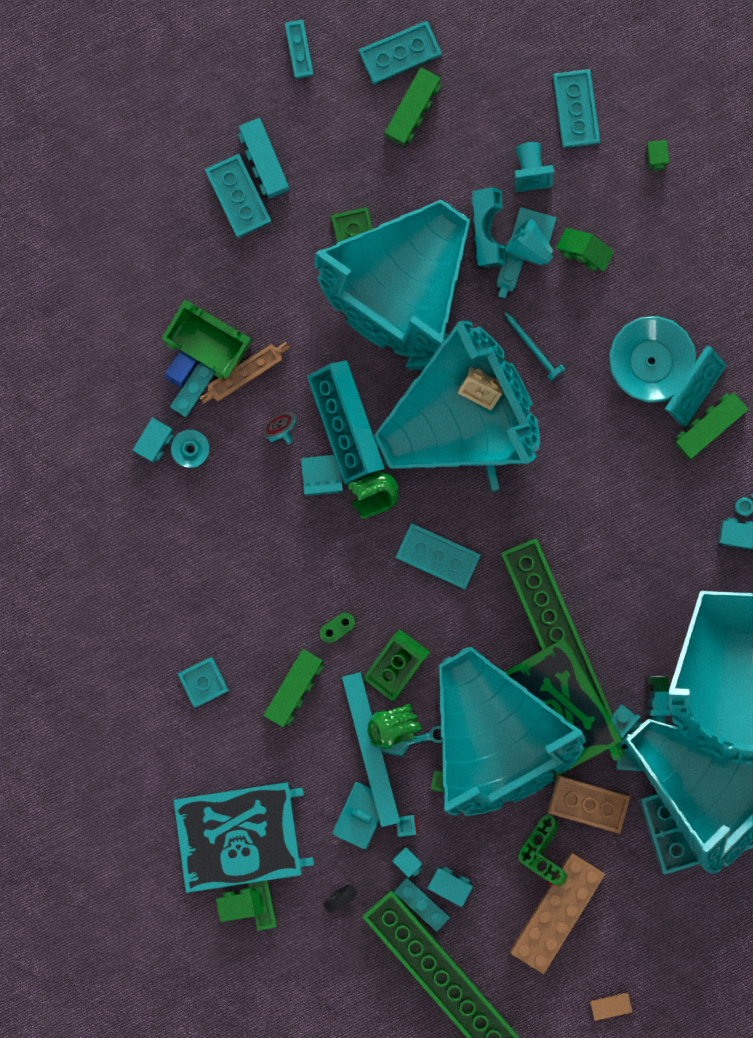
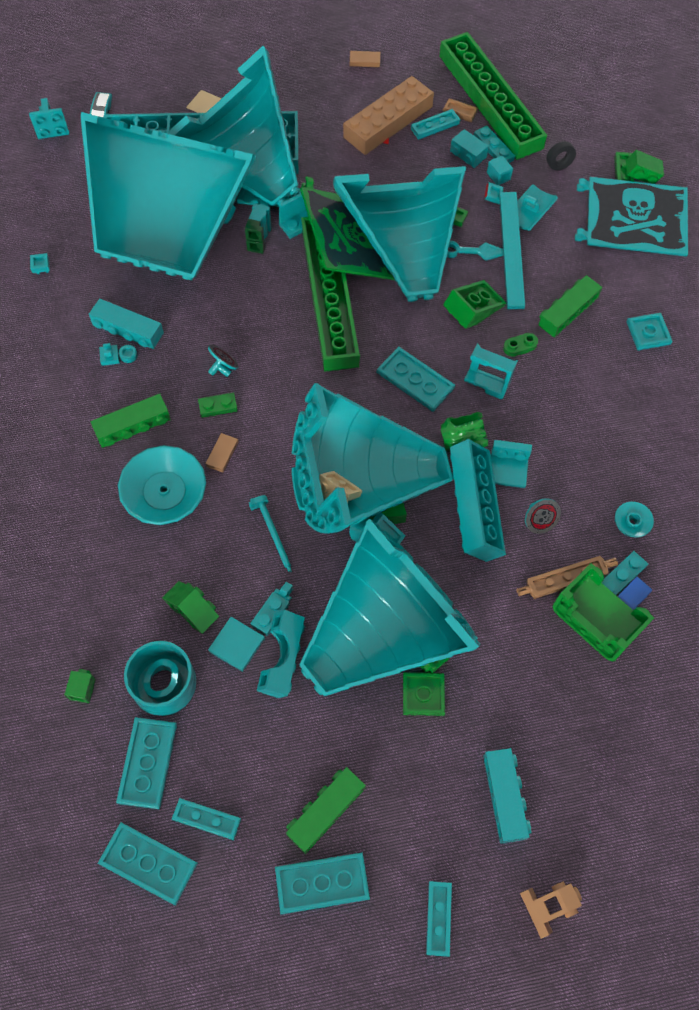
camera: 165 degrees left, 20 degrees down
(153, 441) = (670, 535): teal brick -> none
(202, 88) = (568, 898): none -> medium nougat tile
(238, 195) = (542, 762): teal plate -> none
(362, 574) = (492, 384): none -> teal piece
(392, 727) = (491, 251): green piece -> none
(474, 951) = (464, 111): none -> medium nougat tile
(498, 916) = (435, 124): none -> teal plate
(510, 77) = (206, 819): none -> teal tile
(530, 244) = (246, 623): teal cone -> none
(532, 173) = (217, 704): teal plant -> none
(536, 857) = (394, 149): green beam -> none
(547, 31) = (147, 863): none -> teal tile
(588, 804) = (328, 167): medium nougat tile -> none
(592, 155) = (146, 663): none -> teal piece
(609, 418) = (222, 452): none -> medium nougat tile
(631, 471) = (217, 405): none -> green plate
(642, 520) = (224, 358): none -> shield
(696, 386) = (130, 452): teal tile -> none

